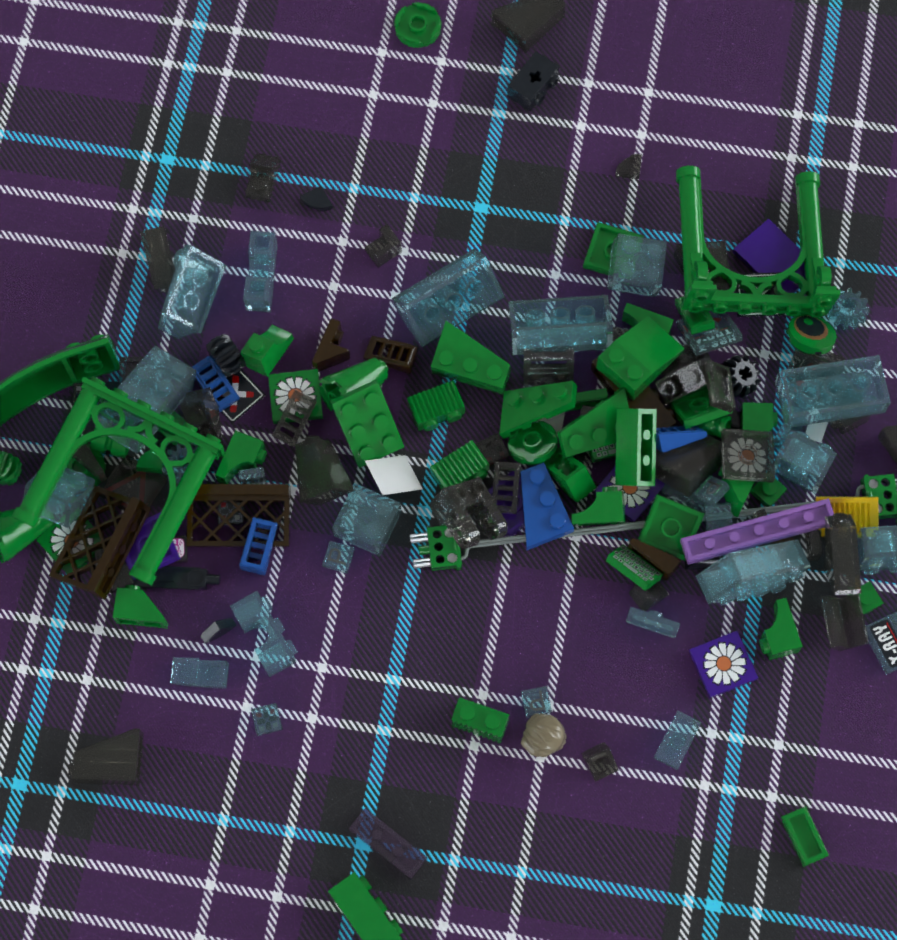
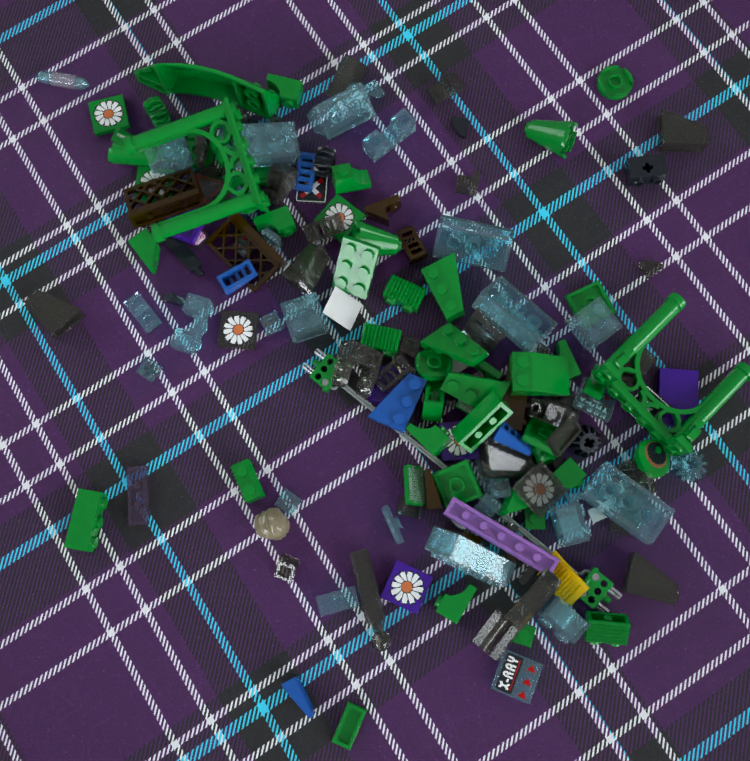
camera: 50 degrees right, 5 degrees up
(107, 320) = (288, 89): none -> green arch
(197, 240) = (374, 90): none -> clear light blue tile
(313, 595) = (238, 330): none -> tile
(414, 128) = (552, 135): none -> green cone
(702, 706) = (370, 597): none -> clear smoke piece
(731, 855) = (297, 692): none -> blue slope

